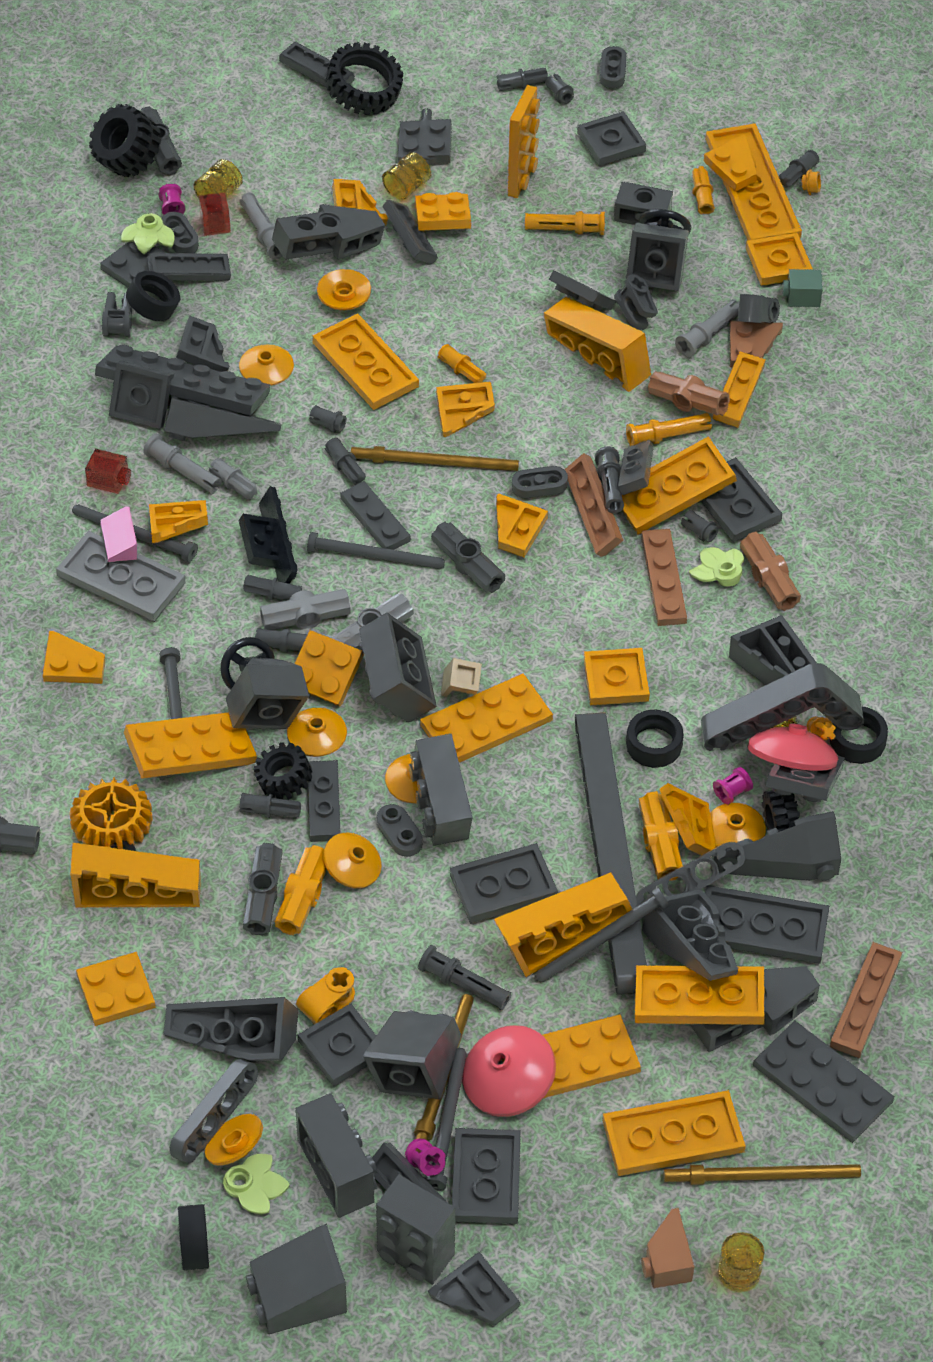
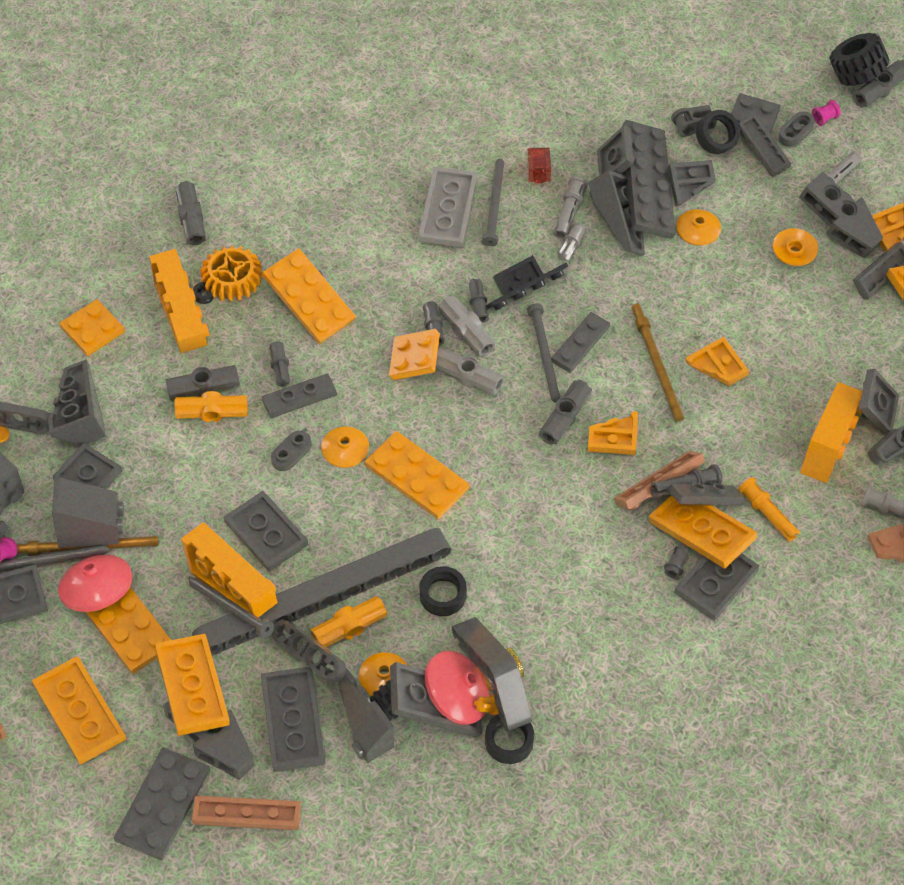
camera: 70 degrees right, 5 degrees up
(72, 661) = (360, 206): light orange wing -> none
(119, 536) = (476, 191): bright pink slope -> none
(148, 232) = (781, 108): yellowish green plate -> none
(170, 657) = (387, 260): dark grey bar -> none
(176, 518) = (513, 218): light orange wing -> none
(214, 214) = (825, 141): clear red brick -> none
(220, 178) = (852, 126): clear yellow wheel -> none
(267, 690) = (367, 315): dark grey piece -> none
(278, 759) = (319, 362): black tyre -> none
(319, 740) = (365, 379): light orange dish -> none
(326, 995) = (124, 451): light orange piece -> none
(327, 418) = (660, 285): dark grey pin -> none
(345, 461) = (624, 305): dark grey axle -> none
(345, 866) = (249, 440): light orange dish -> none
(365, 361) = (731, 285): light orange plate -> none
(397, 668) = (425, 395): dark grey brick -> none
(440, 790) = (319, 457): dark grey brick -> none
(452, 972) = (173, 522): dark grey pin -> none
(461, 364) = (762, 348): light orange axle -> none
(461, 677) = (441, 442): tan panel -> none
(539, 482) = (667, 438): dark grey plate -> none
(616, 676) = (493, 547): light orange plate -> none
(664, 577) = (613, 552): nougat plate -> none
(689, 393) = (808, 510): nougat piece -> none
(691, 818) = (368, 637): light orange wing -> none
(692, 934) = (247, 665): dark grey wedge -> none
(698, 1174) = (49, 740): pearl gold bar -> none
(720, 565) = (642, 588): yellowish green plate -> none
(732, 785) = (416, 657): dark pink bush -> none
(740, 387) = (838, 547): light orange plate -> none
(769, 650) = (554, 656): dark grey wedge -> none
(770, 571) = (651, 625): nougat piece -> none

